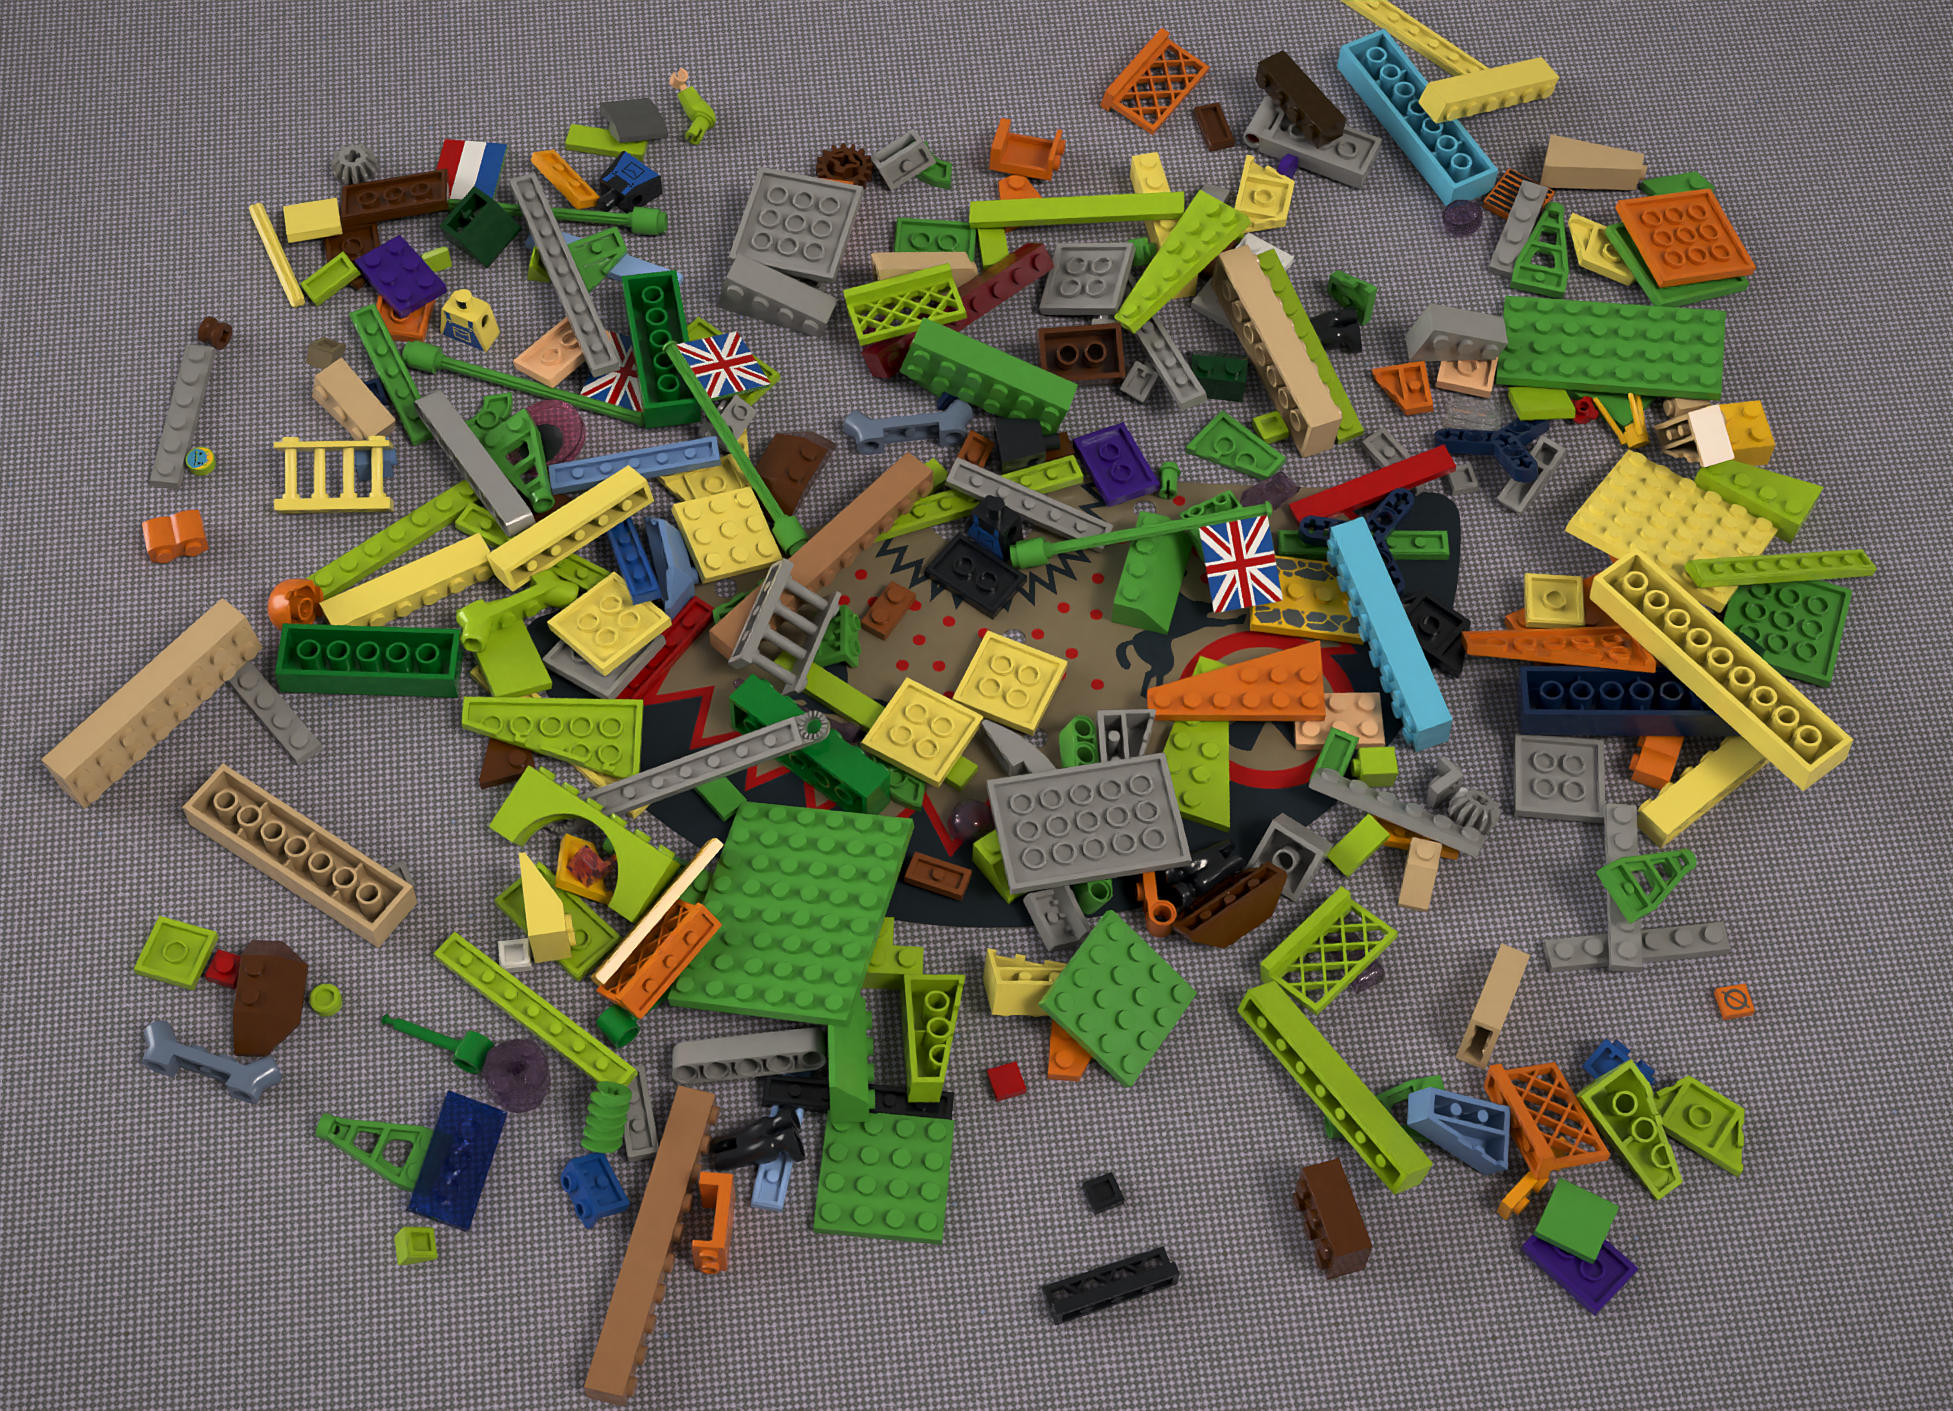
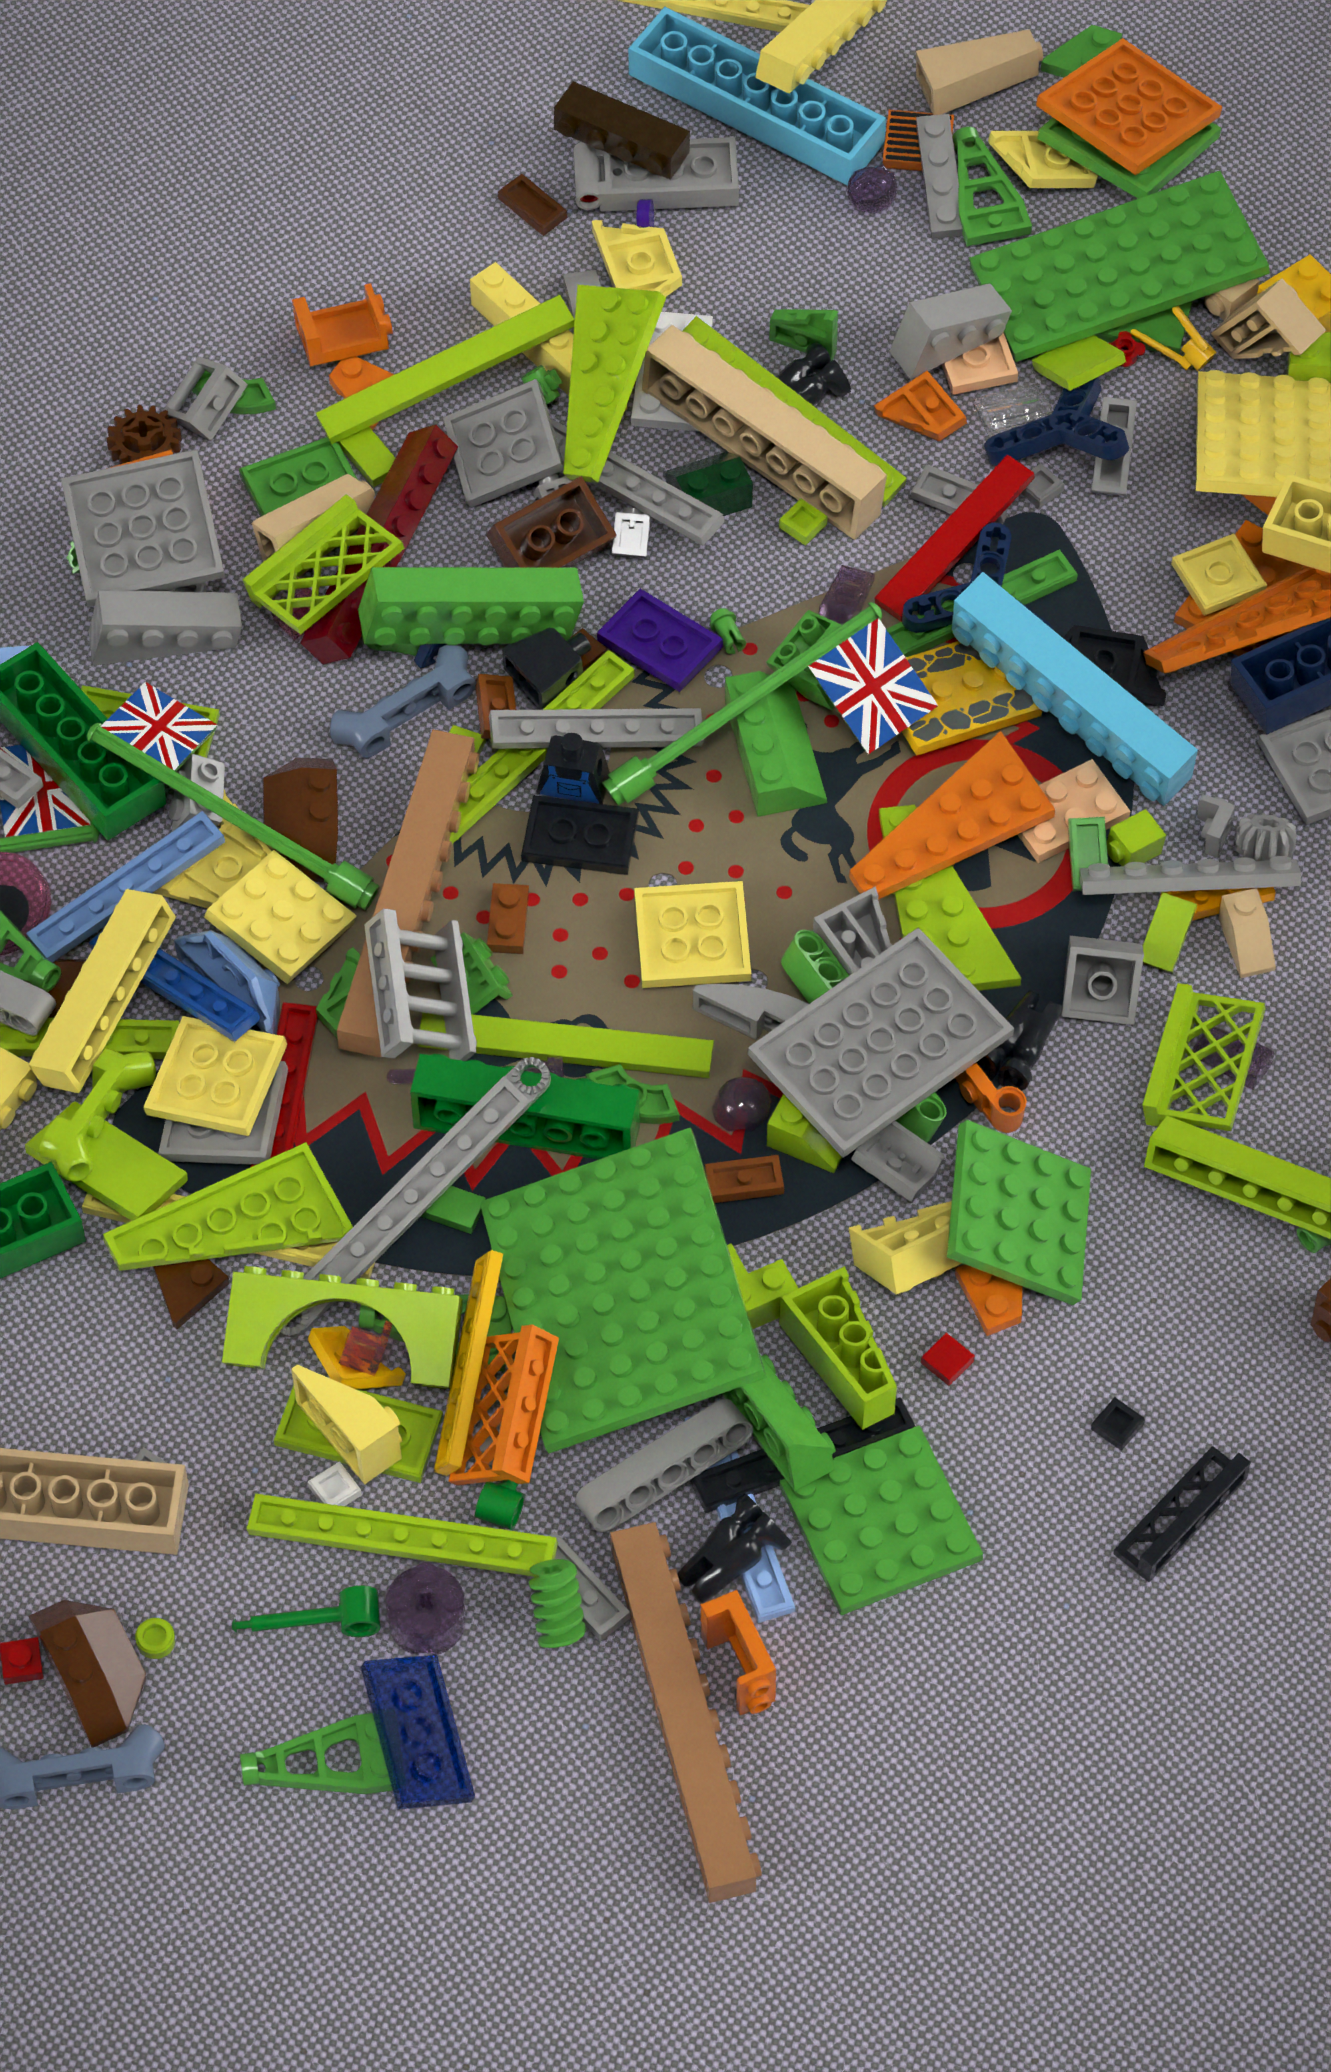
camera: 25 degrees left, 0 degrees up
(415, 1245) = (425, 1843): lime slope -> none
(593, 1188) = (582, 1687): blue bracket -> none
(922, 732) = (634, 1032): light yellow plate -> none
(1135, 72) = (411, 170): orange fence -> none
(1233, 906) = (1077, 1057): reddish brown wedge -> none
(1235, 447) = (779, 561): bright green wing -> none

